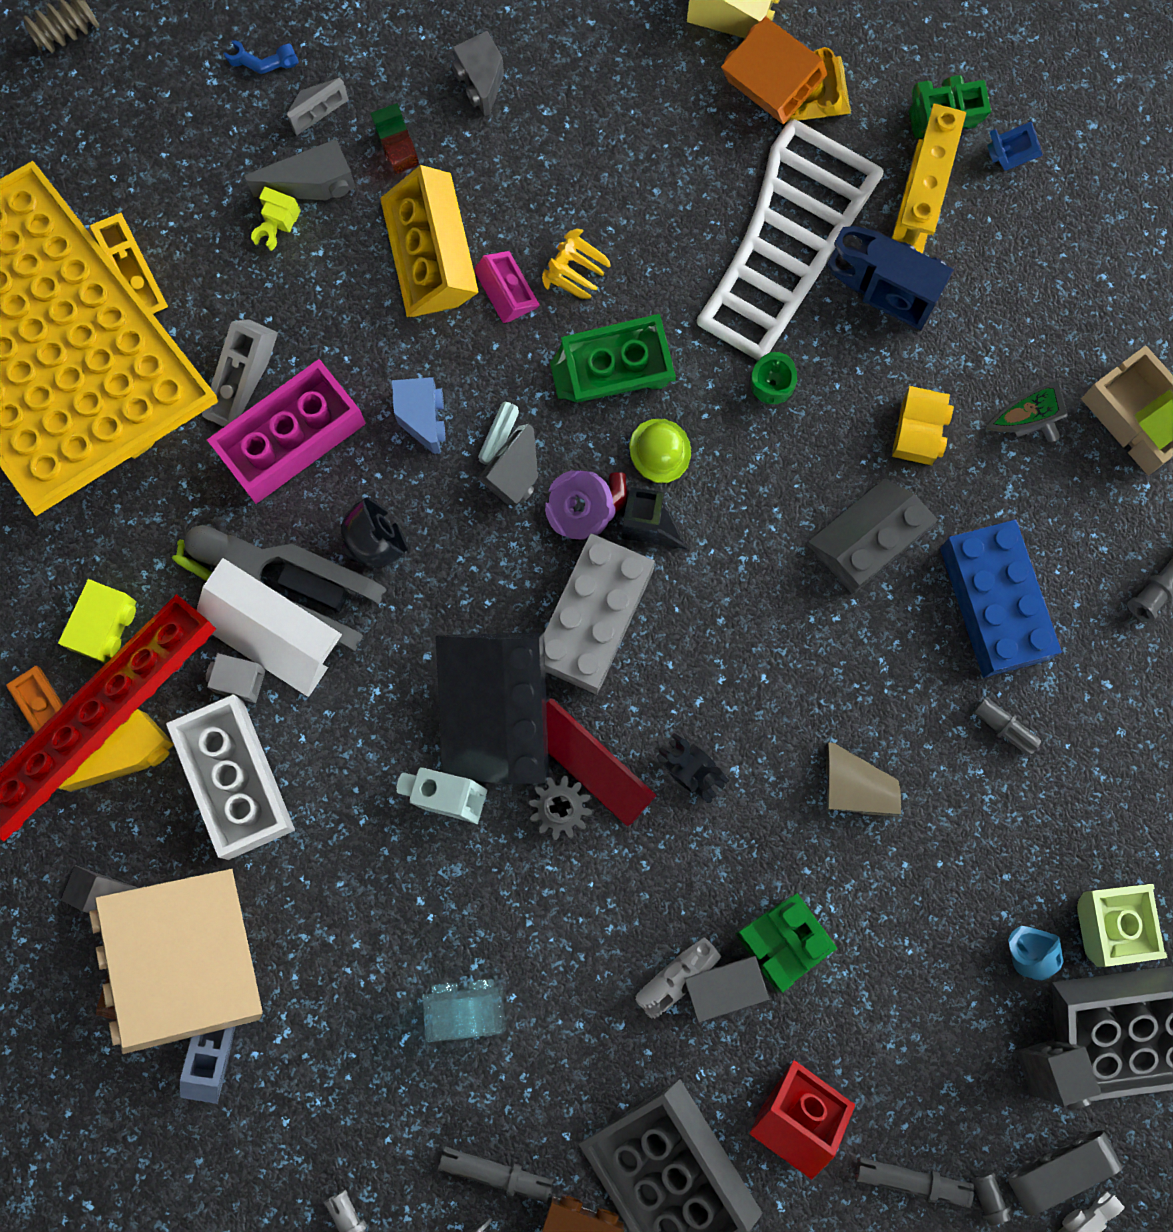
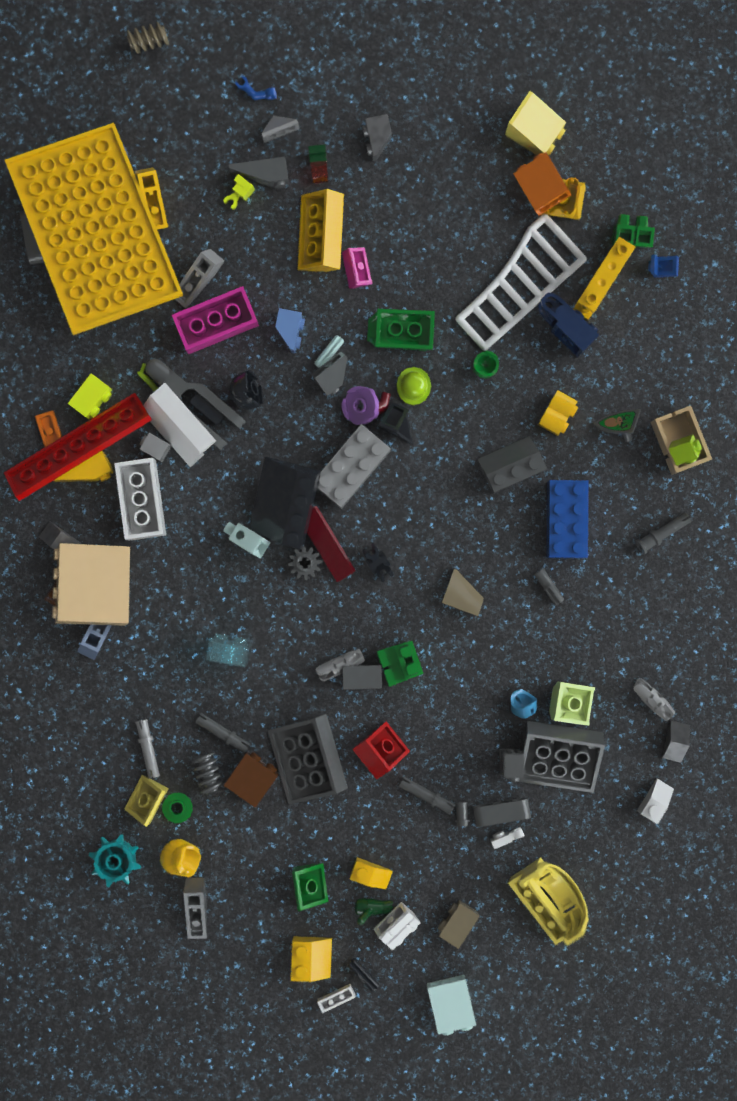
camera: 15 degrees right, 10 degrees up
(560, 264) = (396, 259): yellow piece -> none

